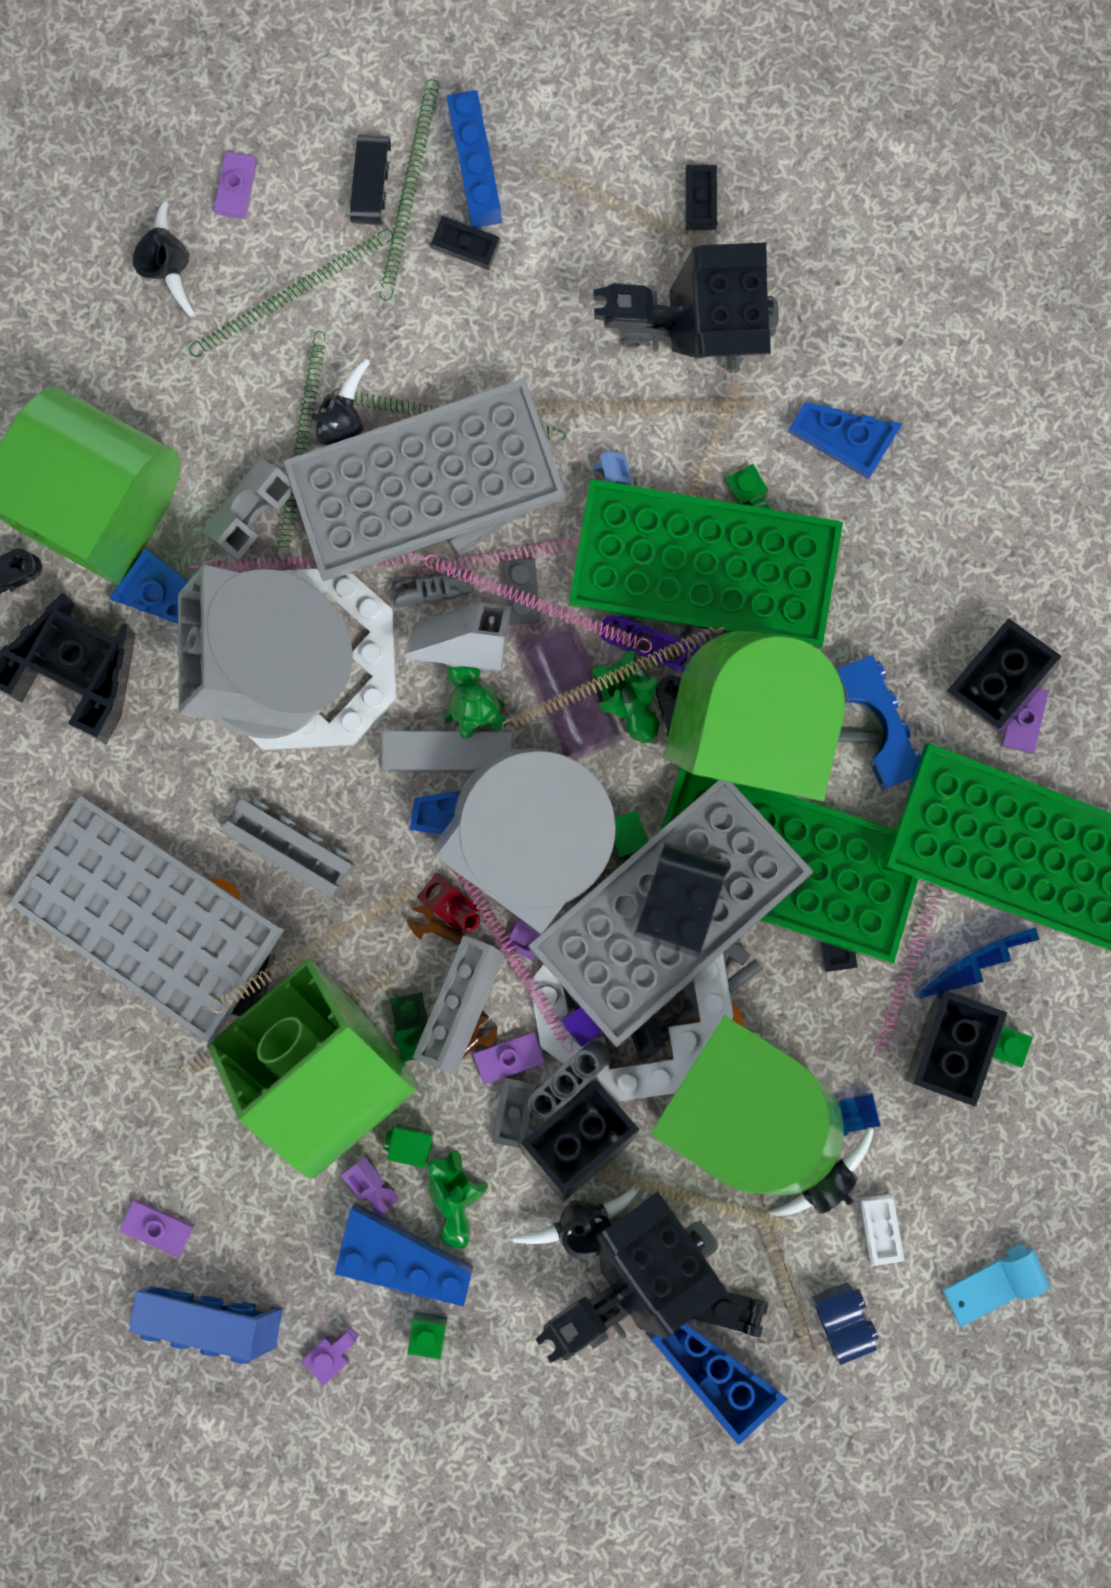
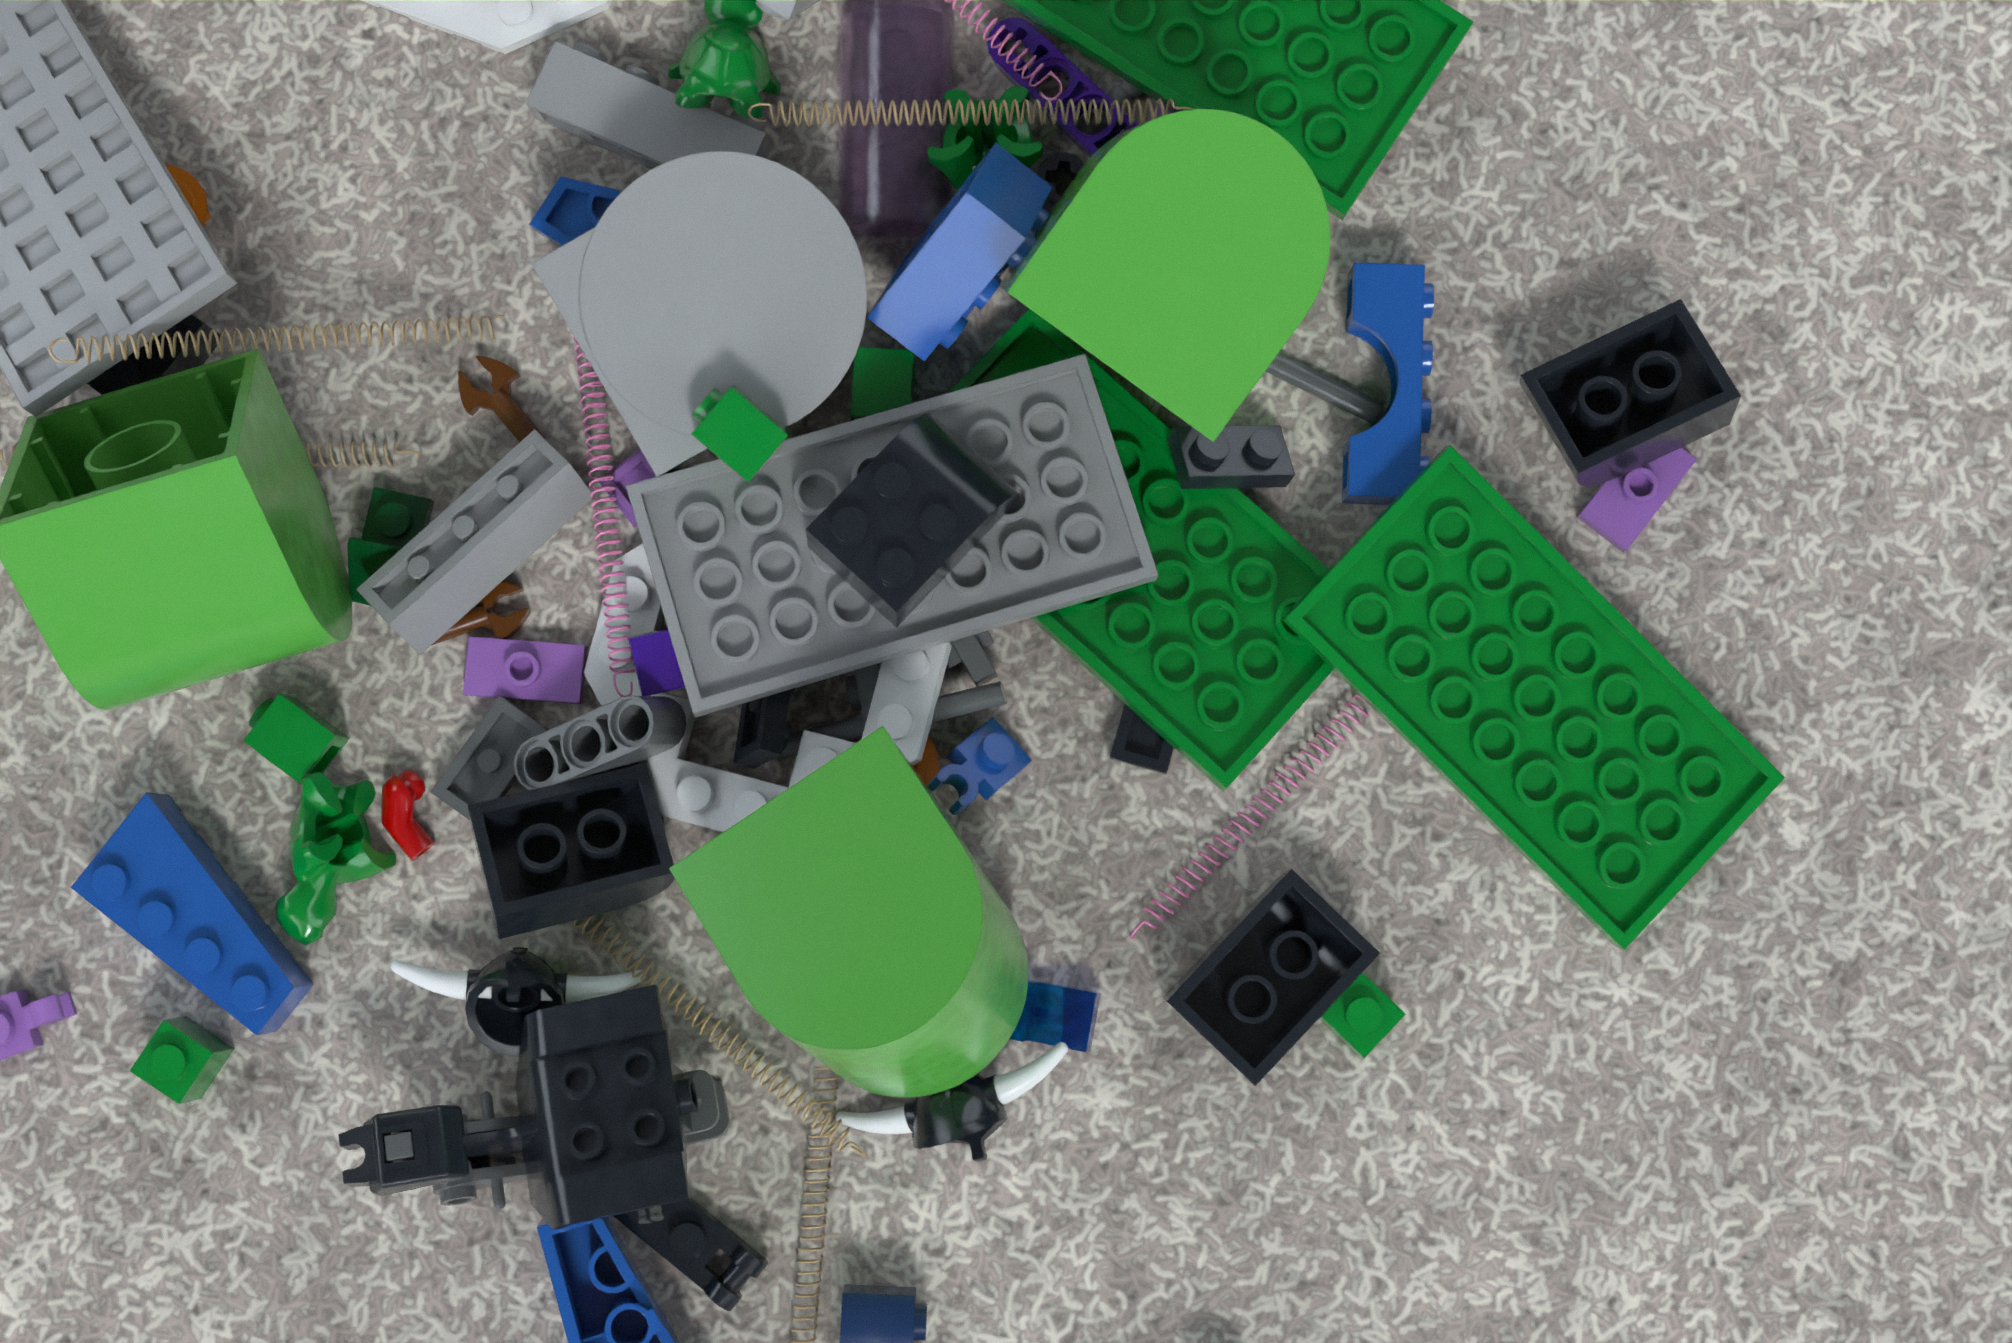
camera: 30 degrees right, 0 degrees up
(287, 848) = (318, 171): light grey brick -> none
(367, 1184) = (197, 769): medium lavender plate -> none
(450, 905) = (540, 376): dark red bracket -> none
(477, 1158) = (398, 813): none -> red arm
(576, 895) = (737, 431): none -> green brick
(643, 753) = (963, 254): none -> brick
(764, 1003) = (981, 765): none -> blue plate
(837, 790) = (1234, 460): none -> black plate
(881, 1229) = (1011, 1225): white plate -> none
(966, 968) = (1347, 857): clear blue slope -> none

